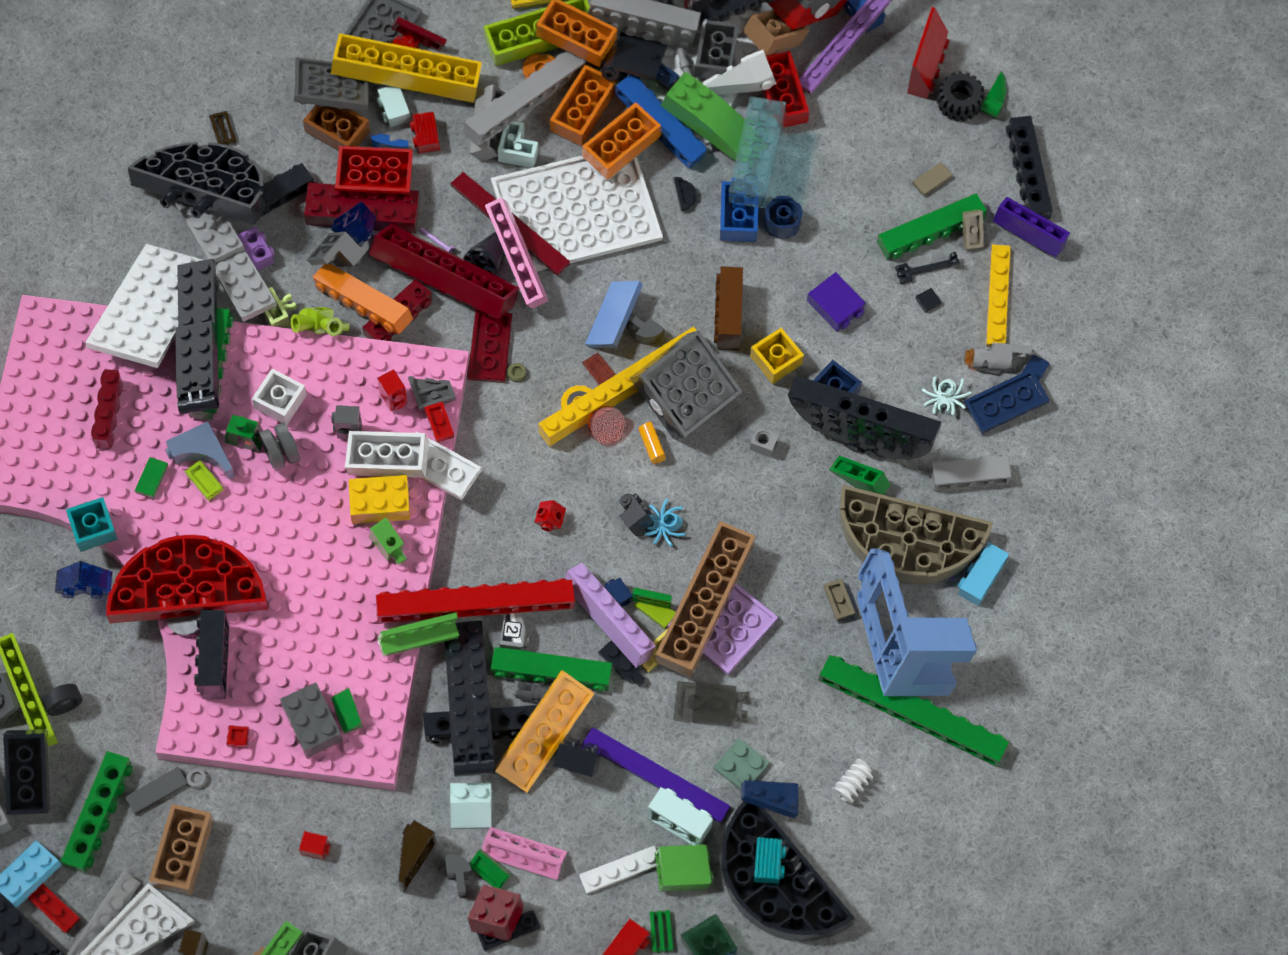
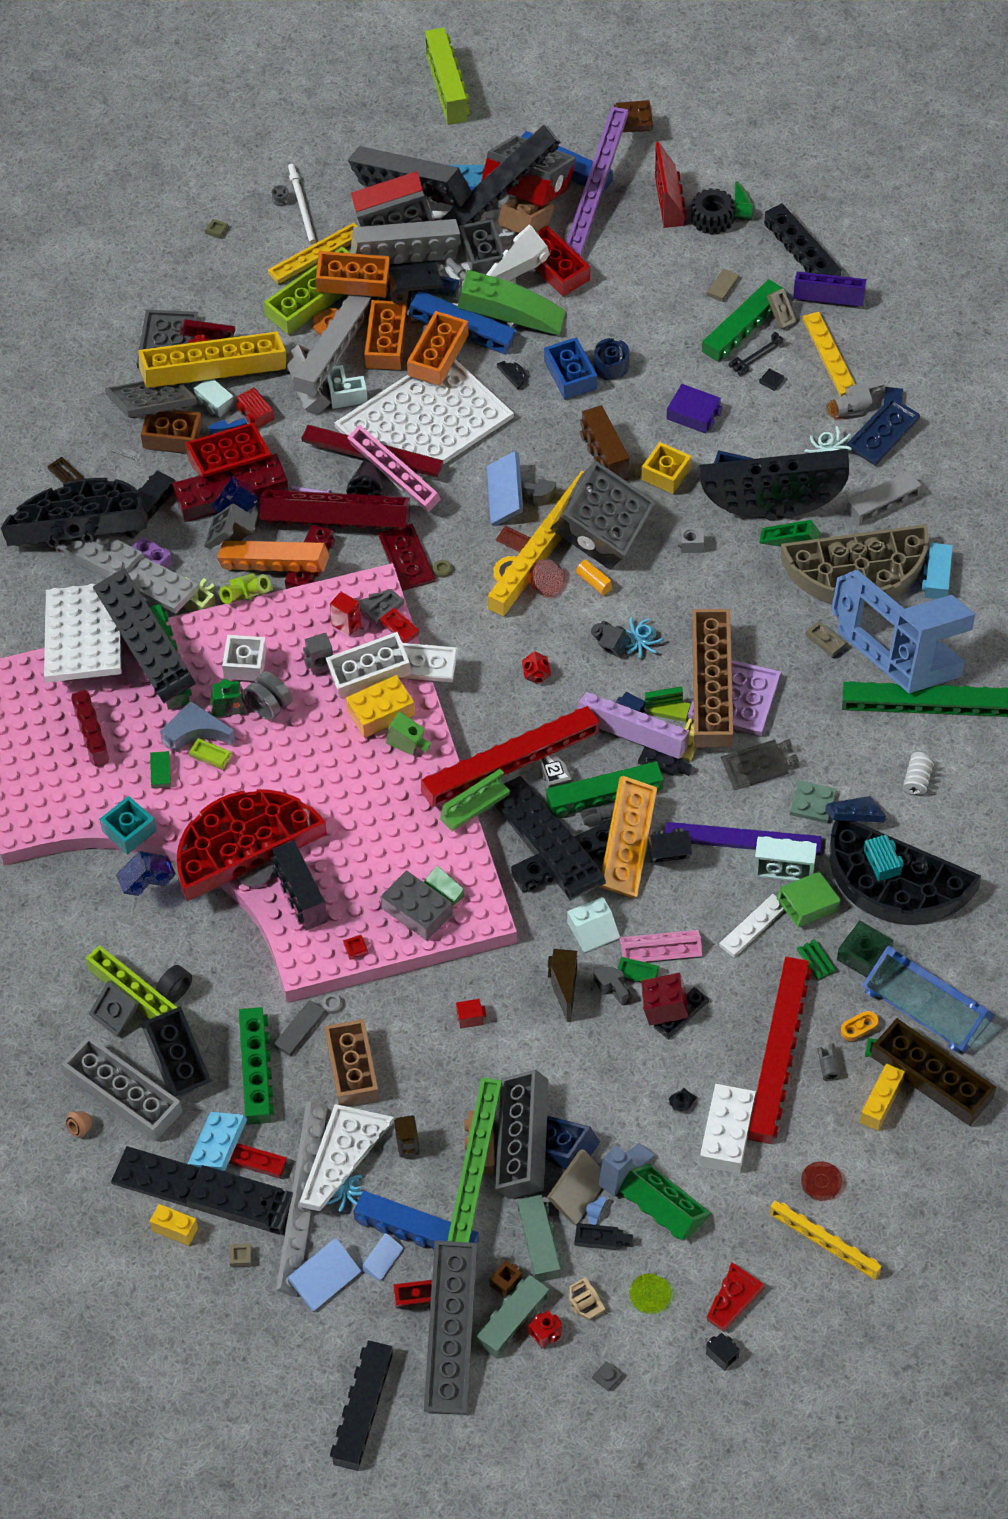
camera: 20 degrees left, 10 degrees down
(757, 152) = (564, 311): clear light blue brick -> none

